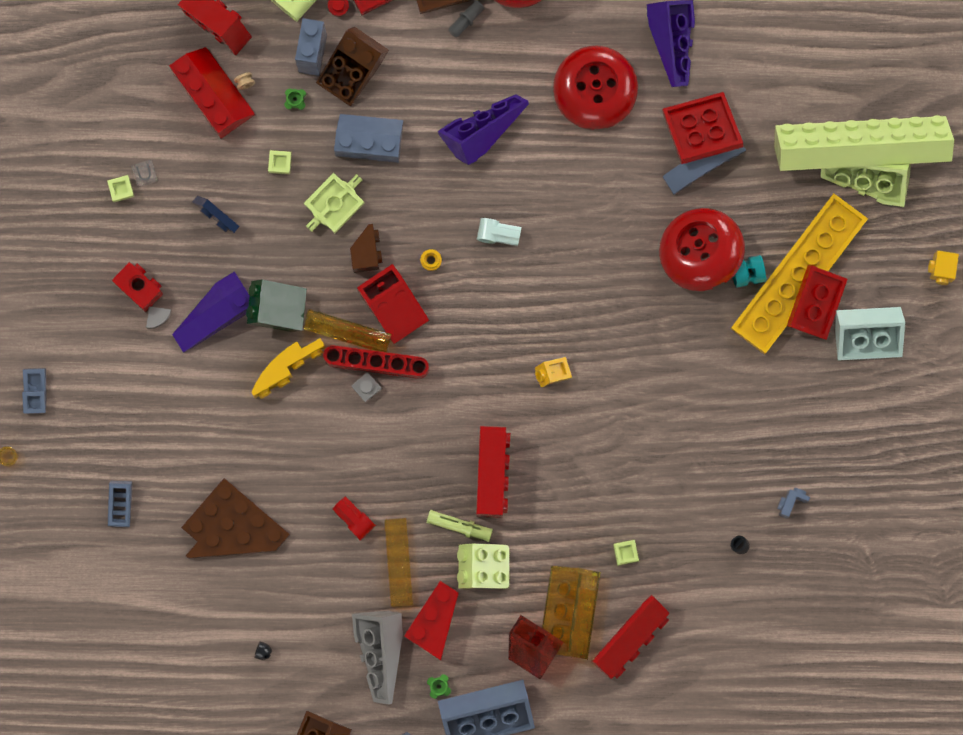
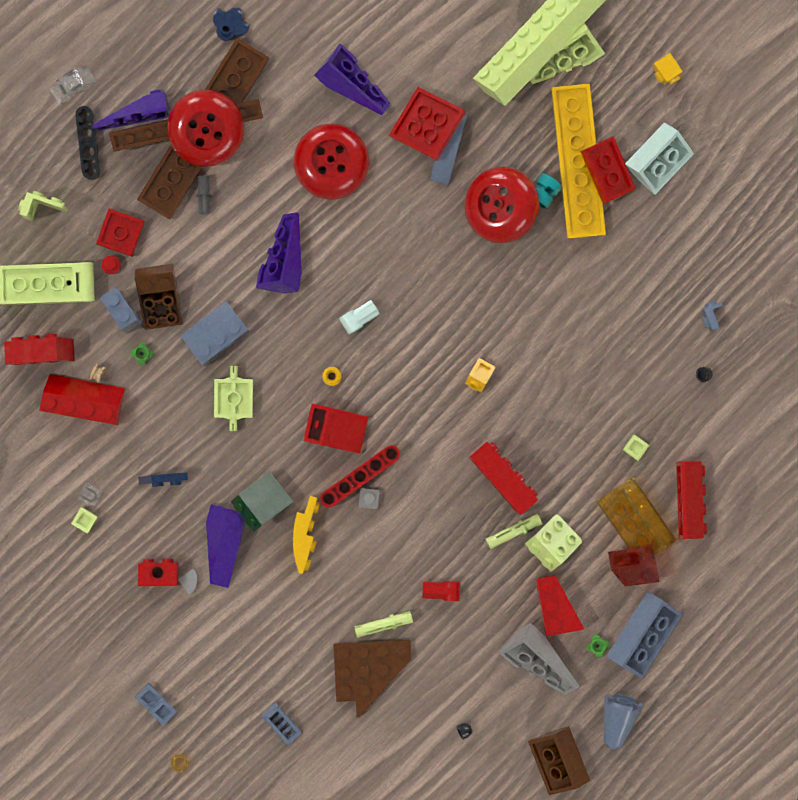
camera: 45 degrees left, 5 degrees up
(279, 162) = (172, 404): yellowish green plate -> none
(289, 505) = (390, 622): none -> yellowish green pin
(347, 331) = (322, 474): clear yellow plate -> none
(364, 251) = (283, 411): reddish brown slope -> none
(398, 562) = (497, 591): clear yellow plate -> none

